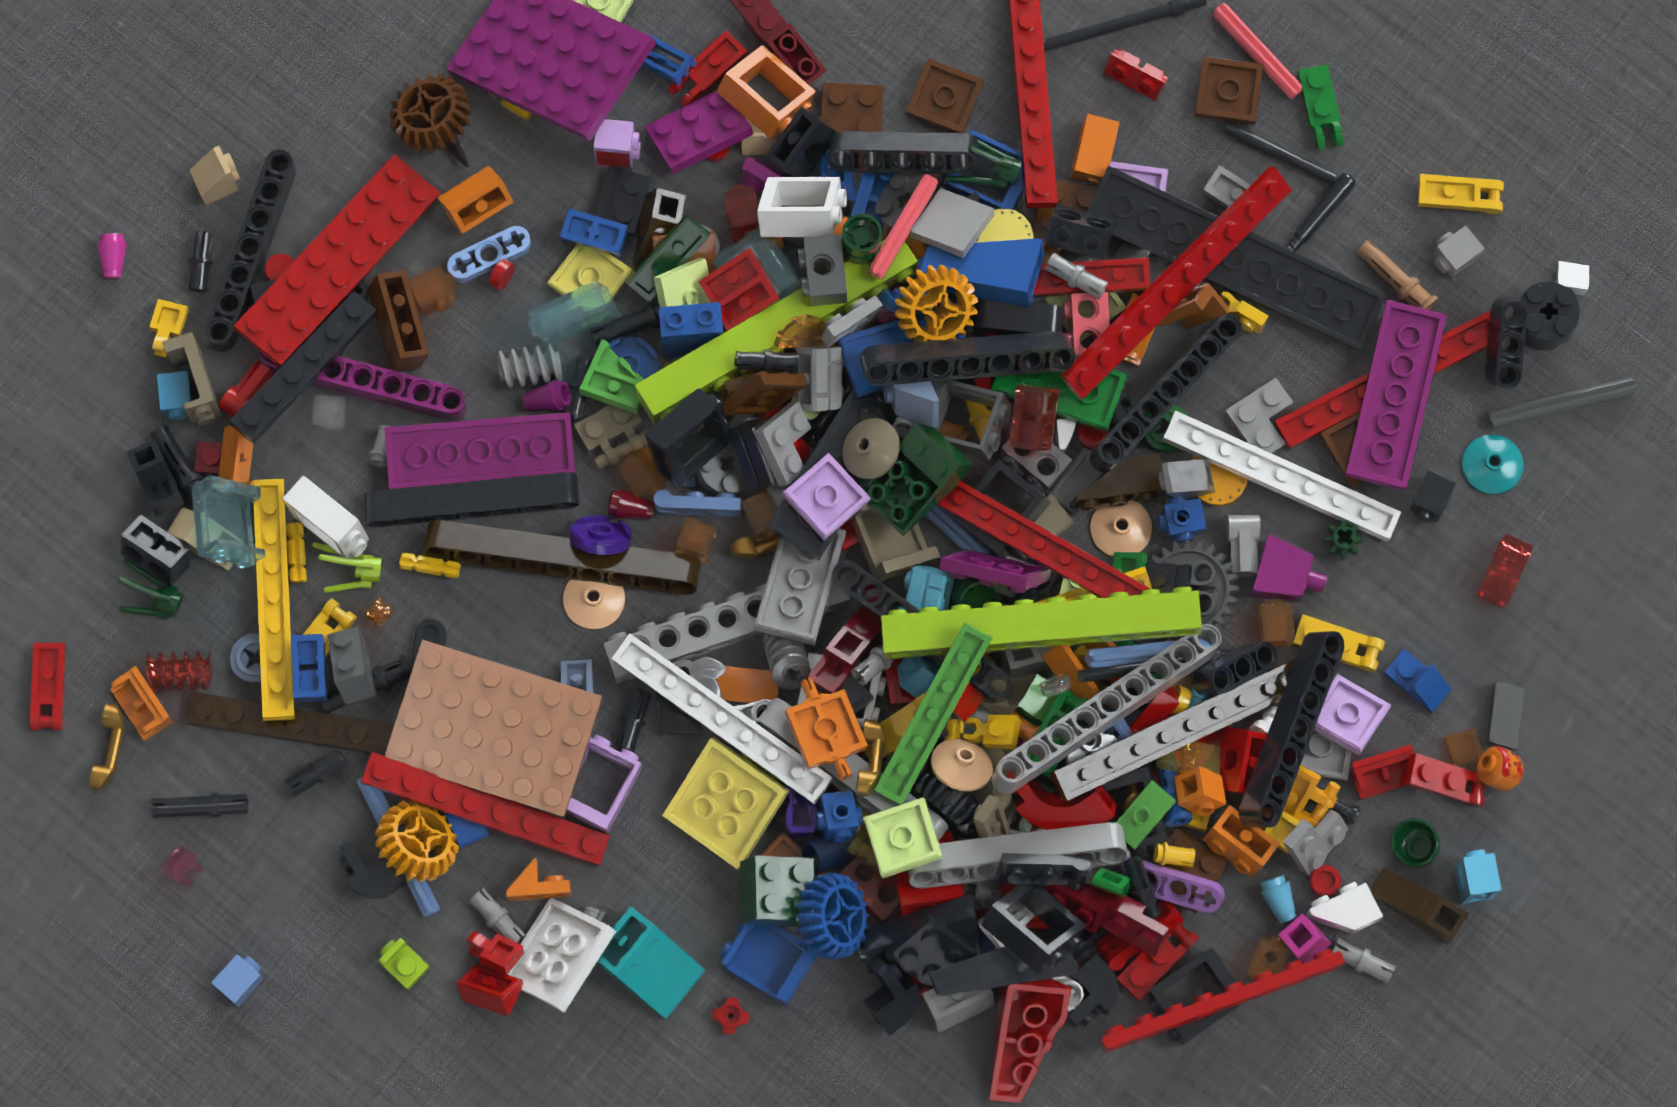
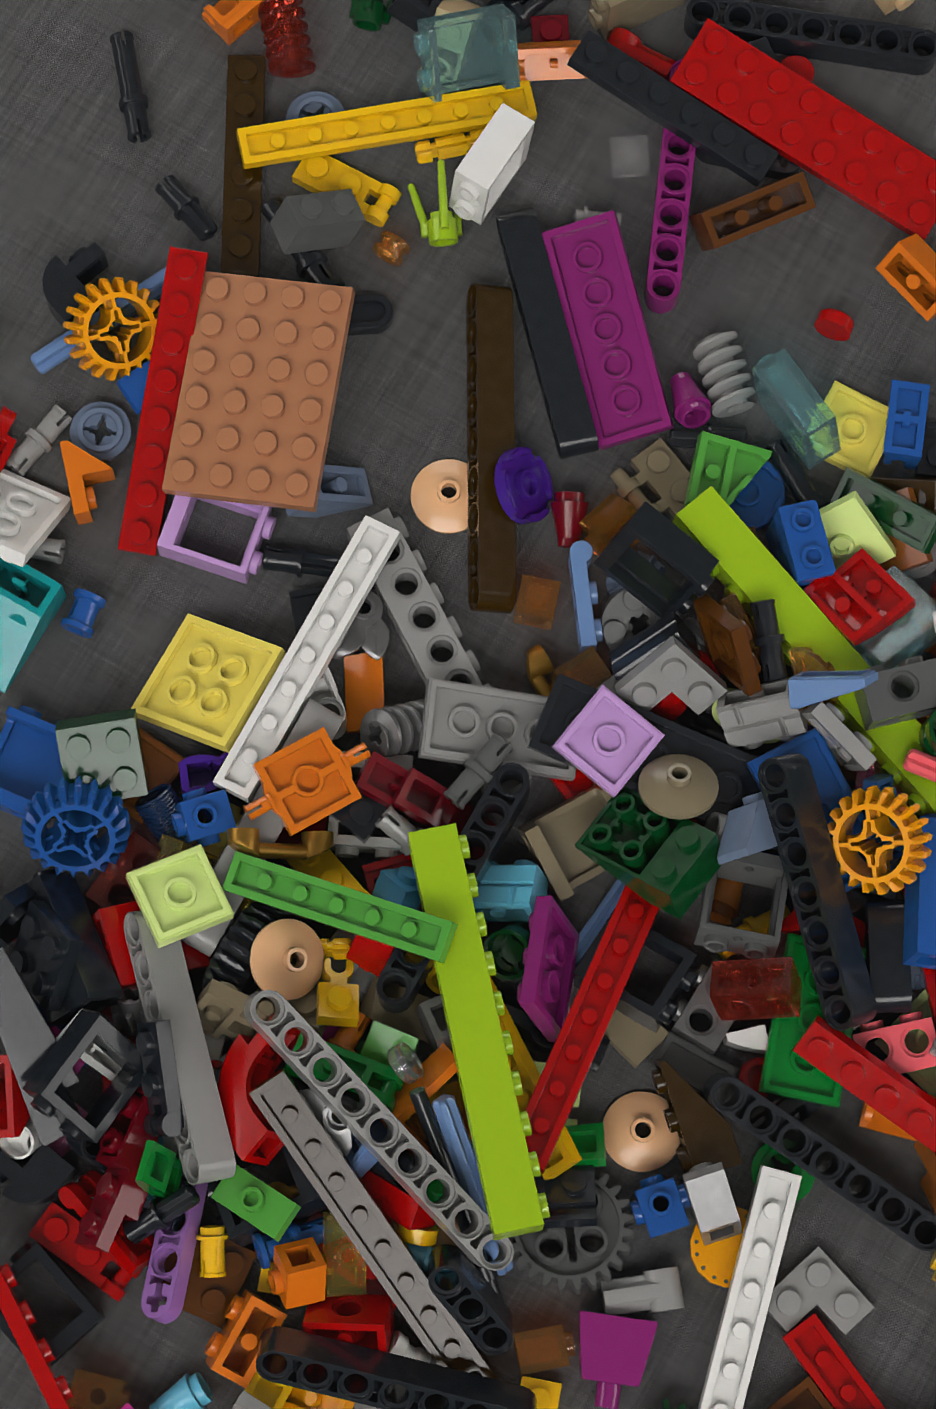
camera: 80 degrees right, 0 degrees up
(179, 864) = (56, 74): clear pink tile -> none
(309, 668) = (303, 170): blue brick -> none
(429, 565) = (458, 298): yellow axle -> none
(433, 290) = (799, 248): clear orange brick -> none
(490, 854) = (90, 418): none -> sand blue gear
(512, 250) = (852, 280): light blue beam -> none
(649, 898) = (83, 613): none -> blue bush
(813, 323) = (817, 686): none -> medium blue slope
(834, 599) = (478, 771): none -> dark grey pin

